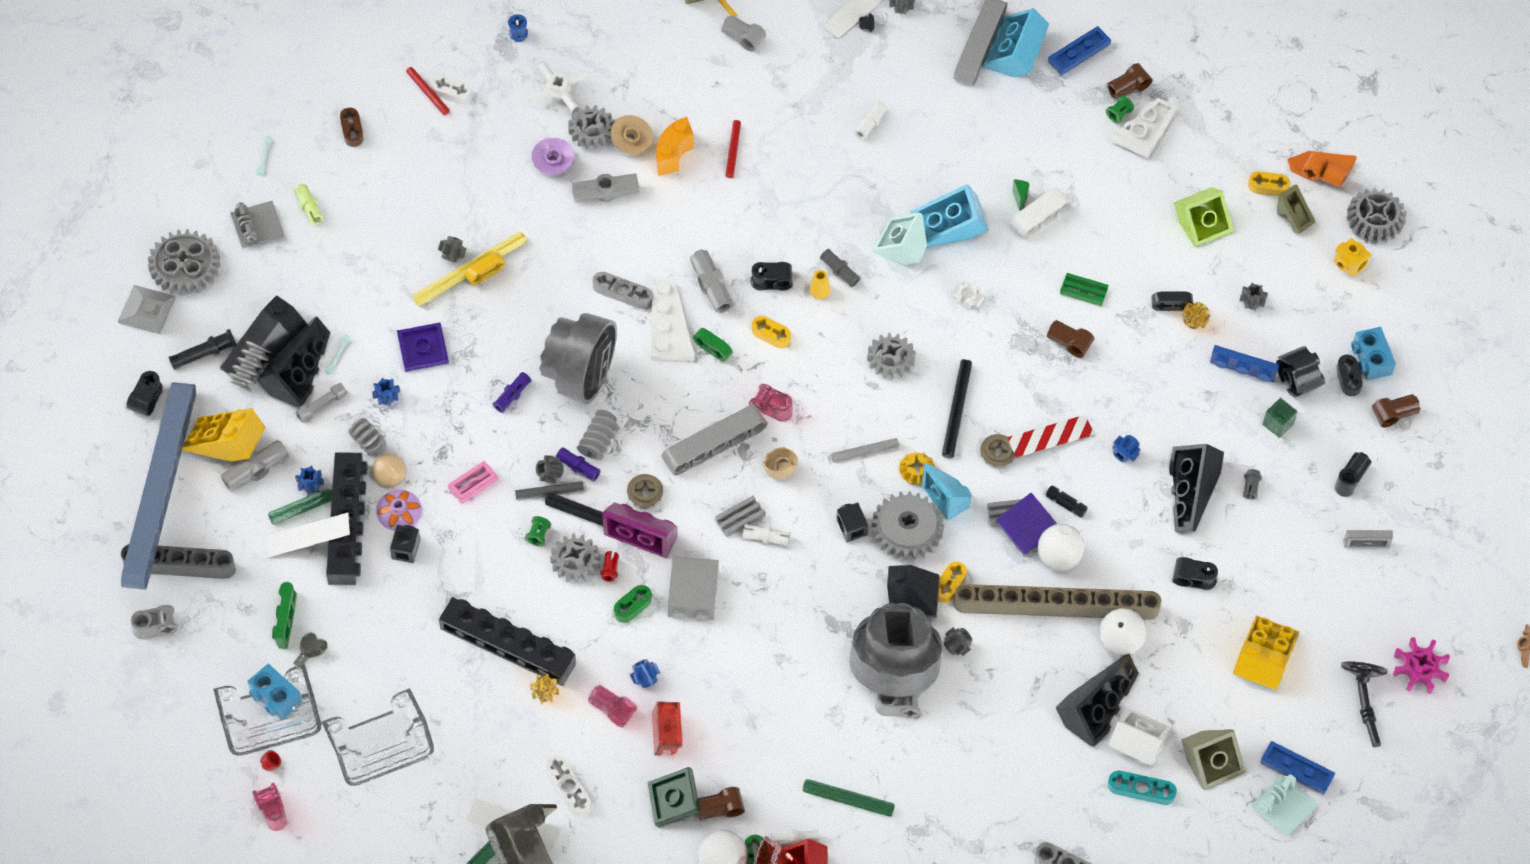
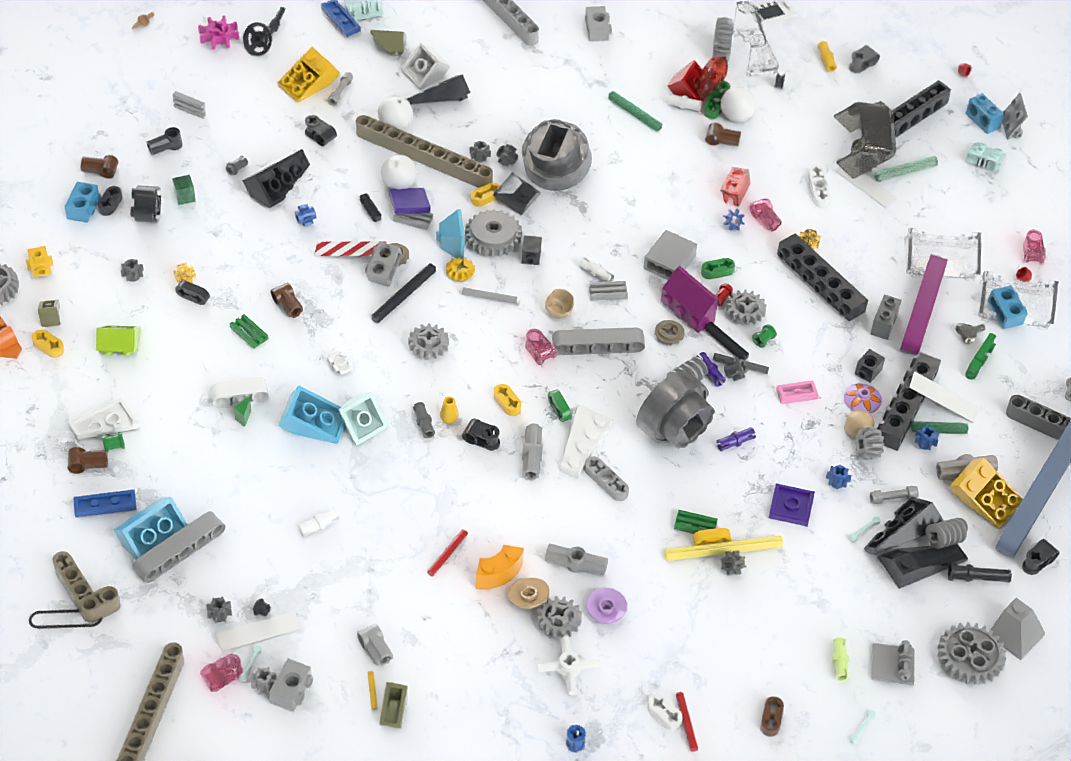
camera: 155 degrees left, 10 degrees down
(374, 657) = (924, 304): none -> magenta beam
(411, 615) = (885, 317): none -> dark grey brick
(509, 278) = (695, 520): none -> green tile
(673, 797) = (752, 147): tile -> none
(993, 634) = (480, 151): none -> dark grey gear
(998, 419) = (387, 264): none -> light grey brick
(1149, 781) = (453, 52): teal beam -> none
(1215, 637) = (335, 96): none -> light grey bar
(1244, 363) = (178, 232): blue plate -> none

